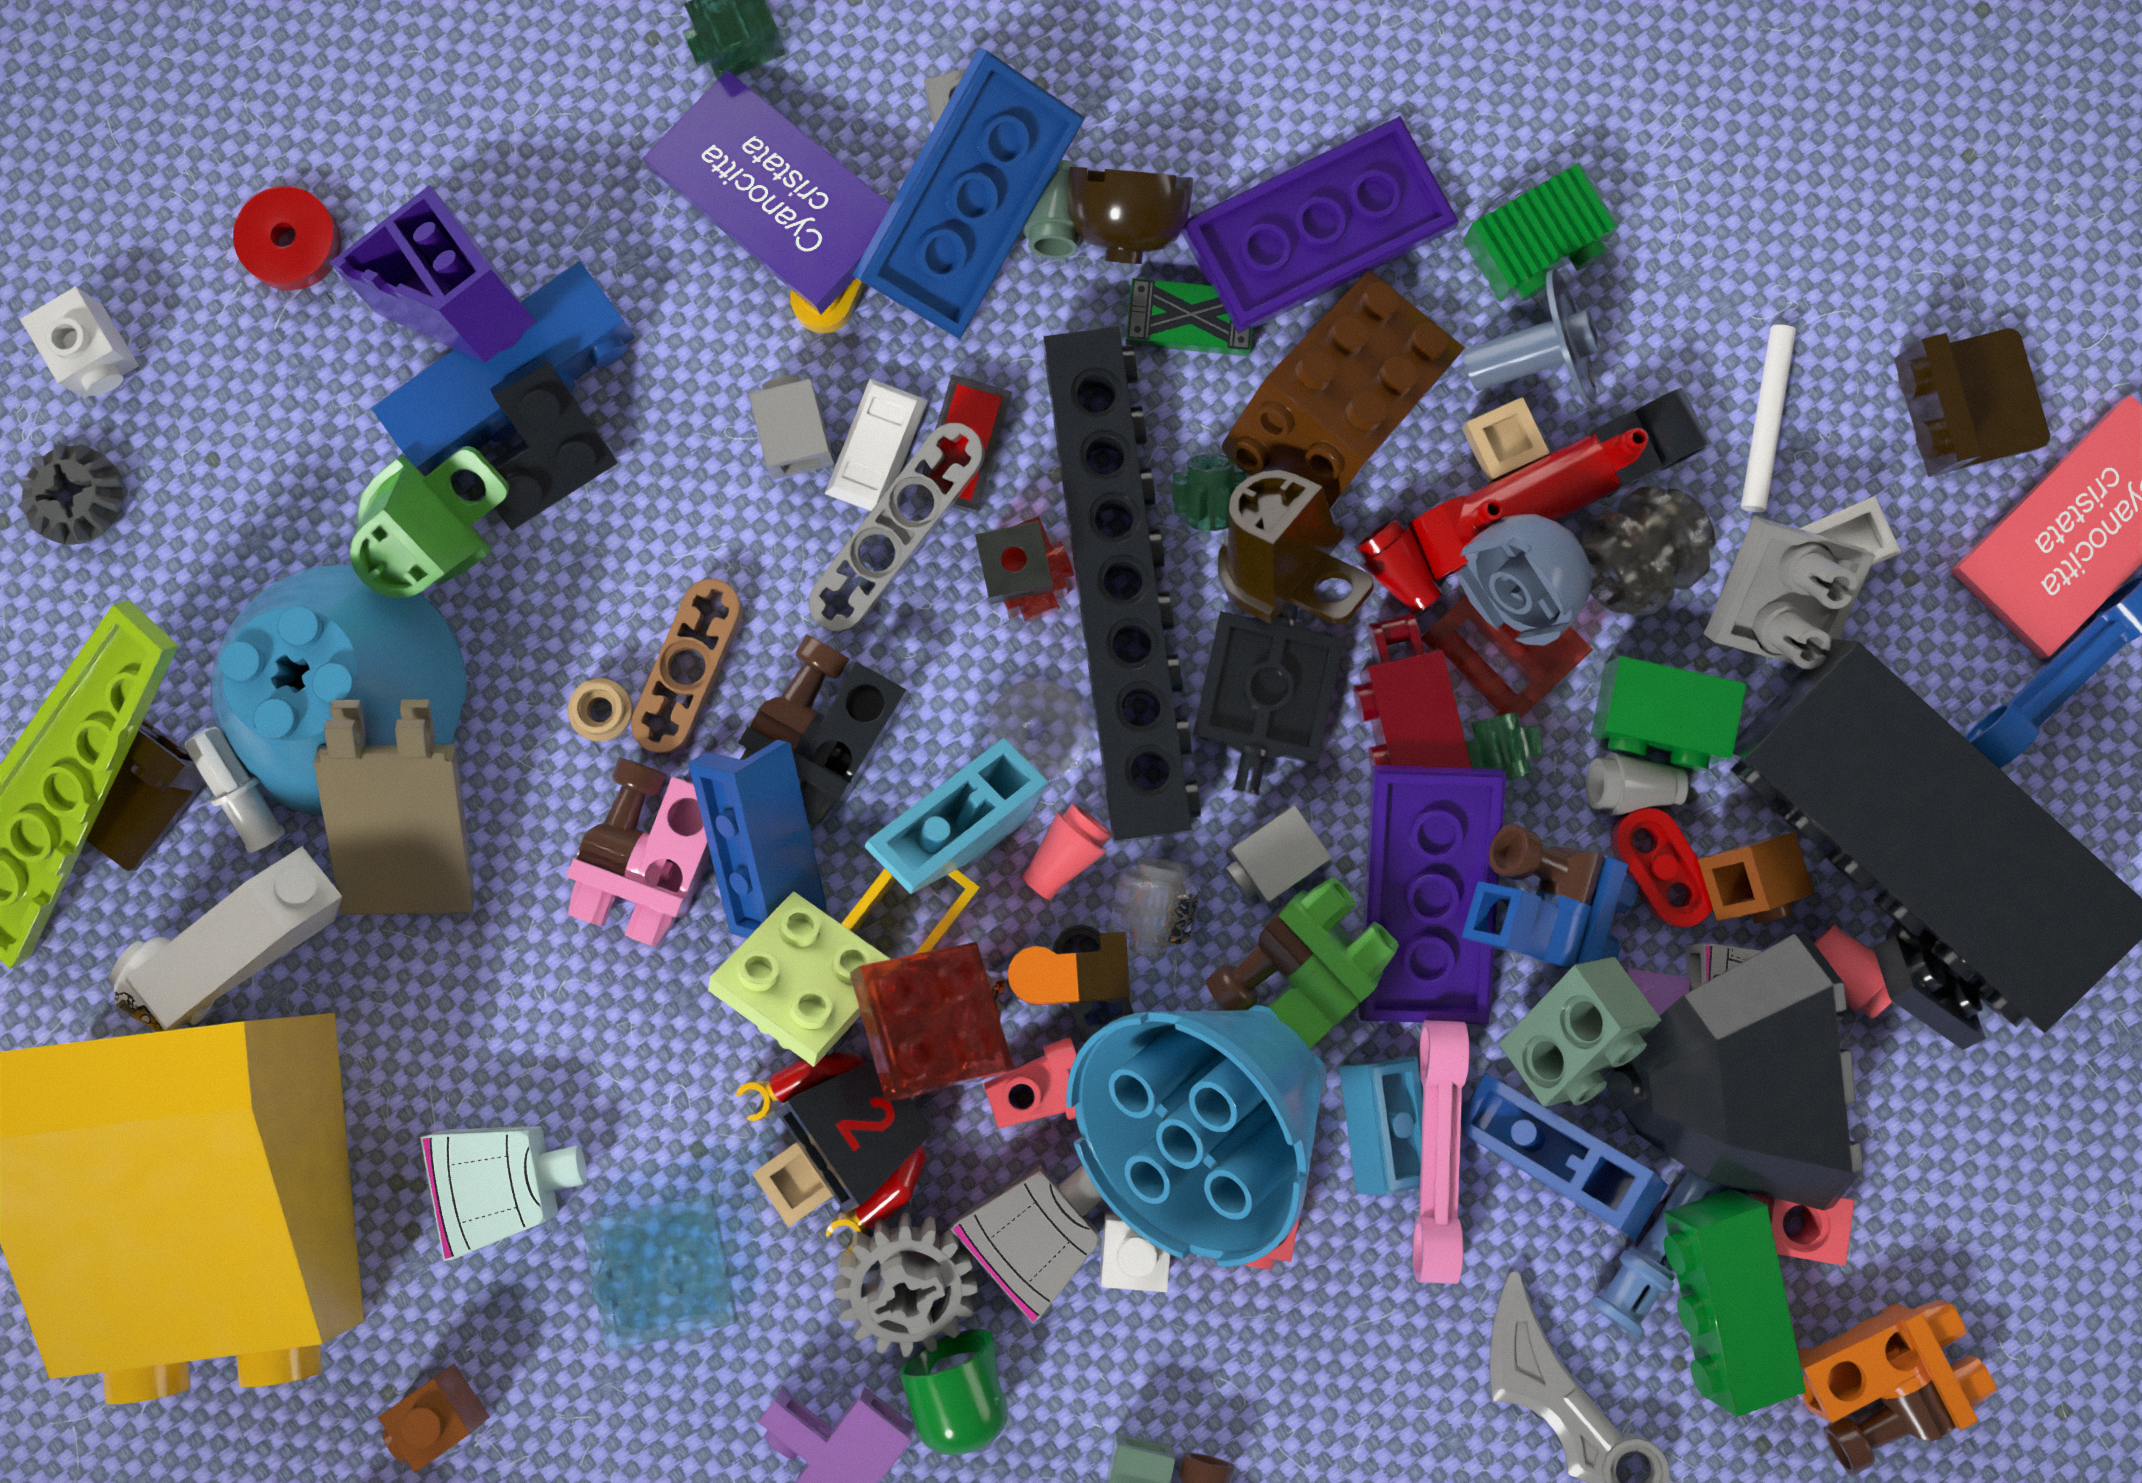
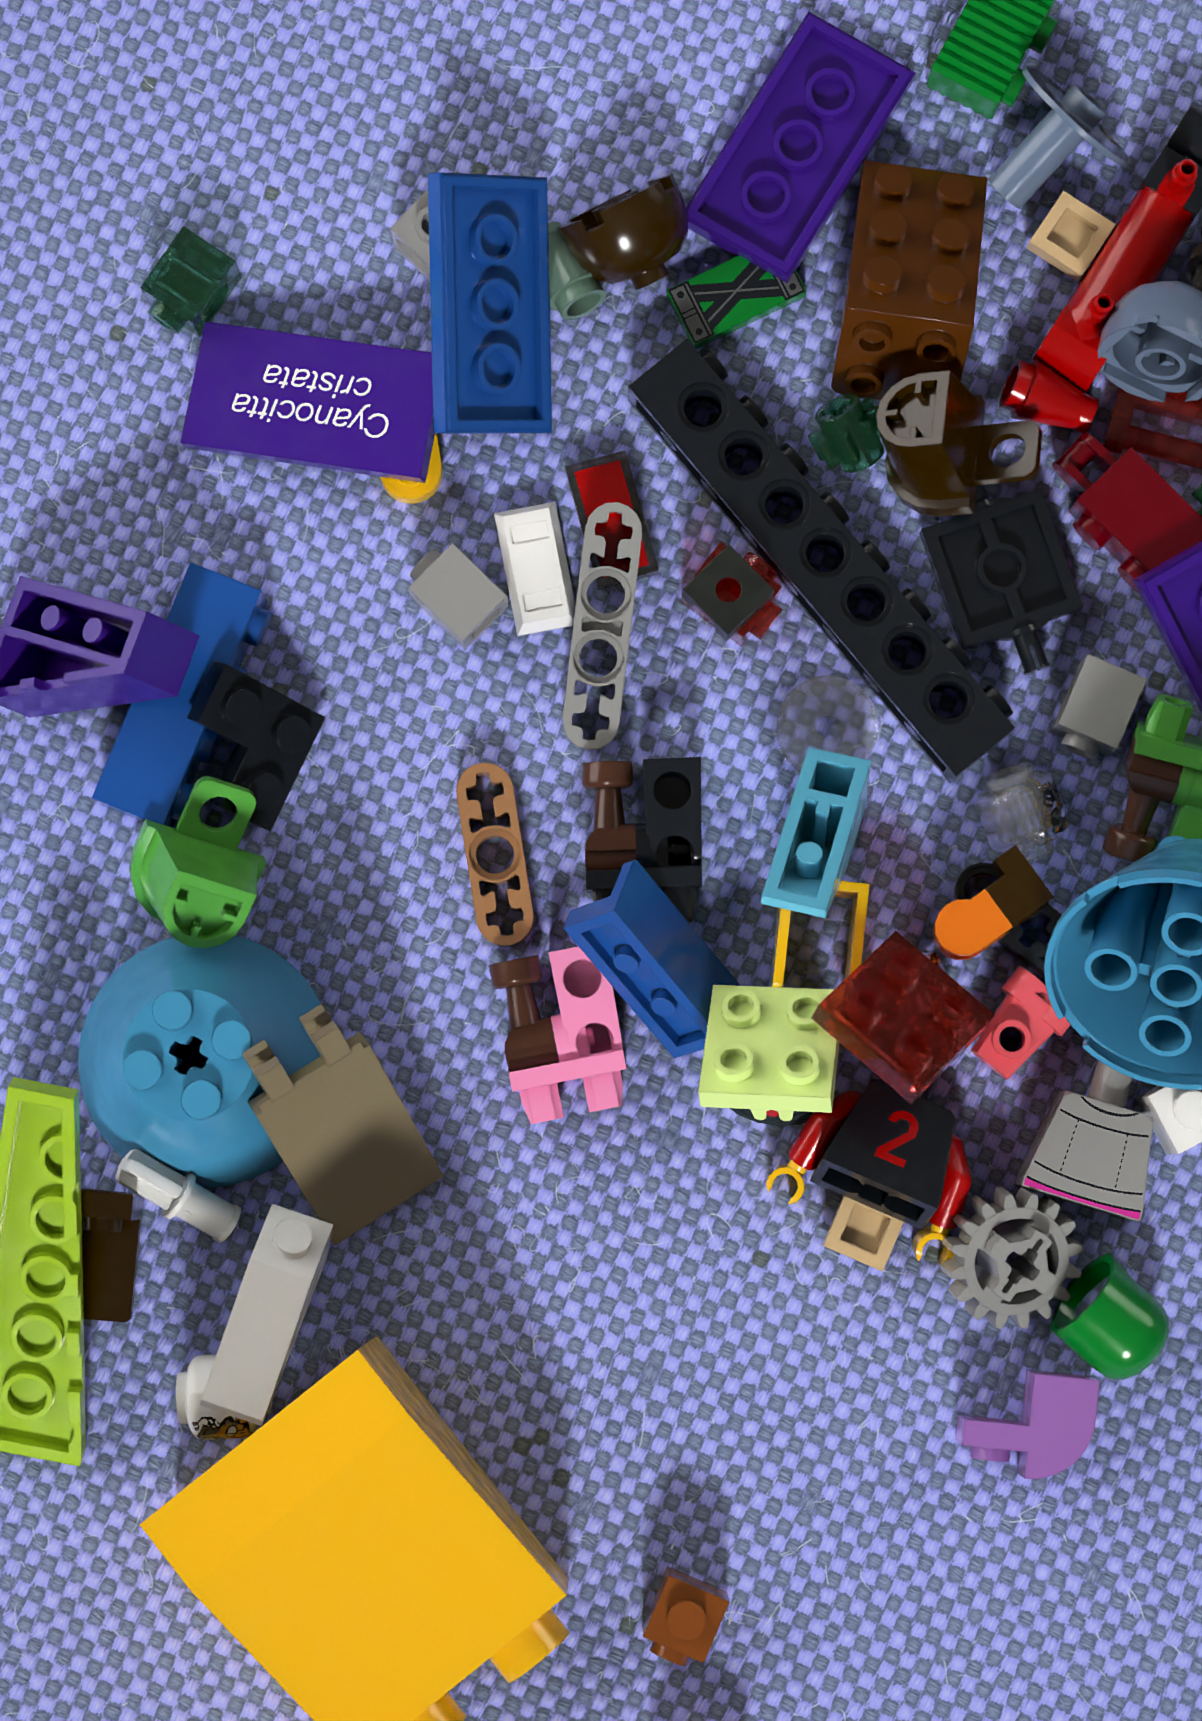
camera: 25 degrees left, 0 degrees up
(494, 1183) = (612, 1388): light aqua torso -> none
(583, 700) = (429, 922): tan plate -> none
(659, 1271) = (796, 1377): clear light blue plate -> none
(1066, 850) = (916, 813): coral cone -> none

